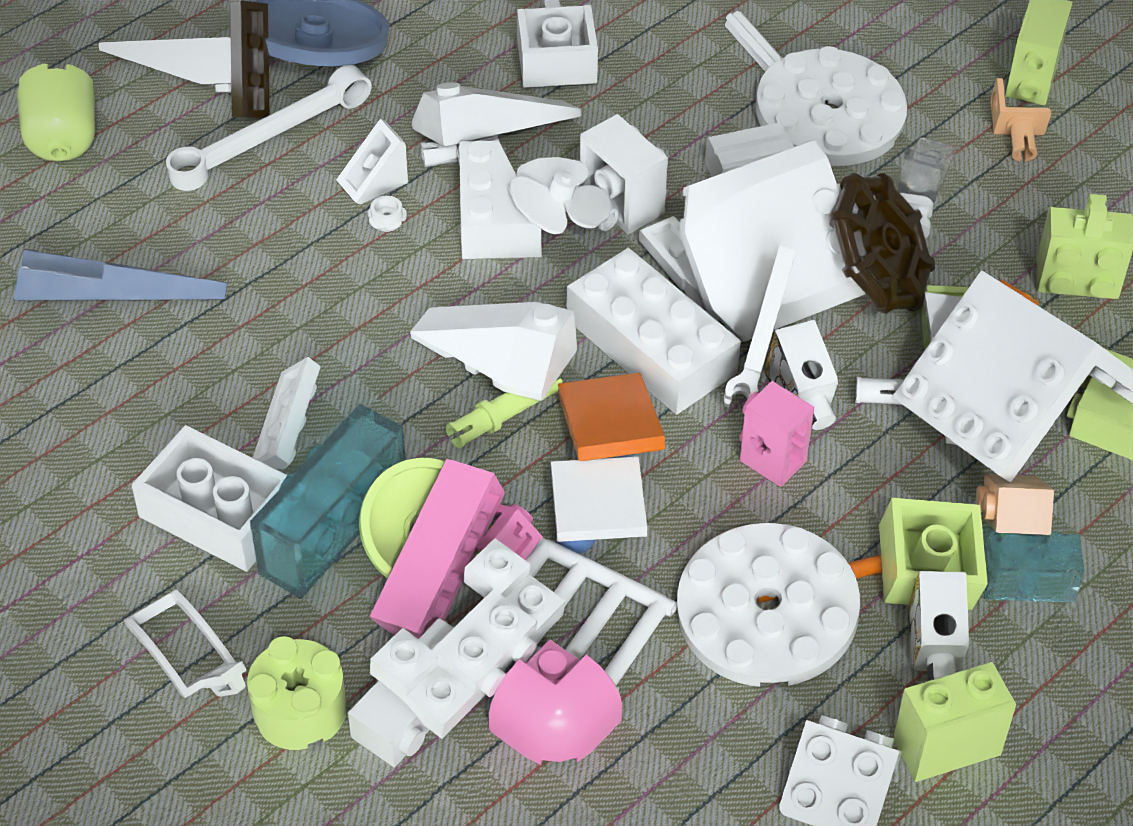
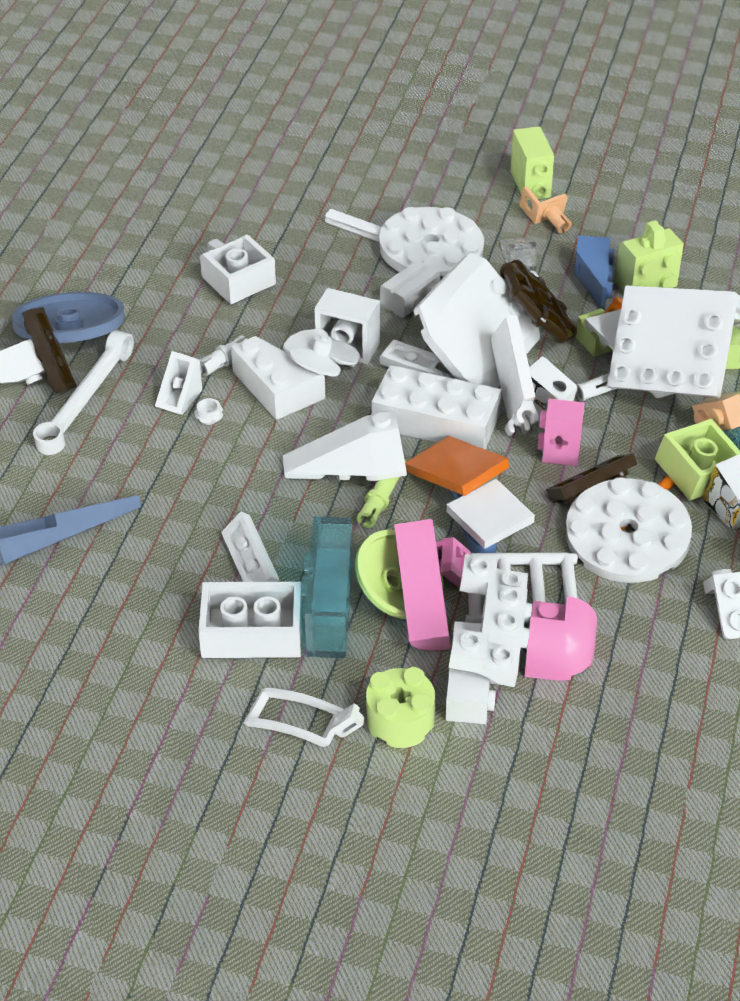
camera: 30 degrees left, 5 degrees down
(469, 113) = (220, 329): white wedge -> none
(815, 511) = (612, 468): none -> dark brown plate
(1018, 223) = (595, 267): none -> medium blue slope

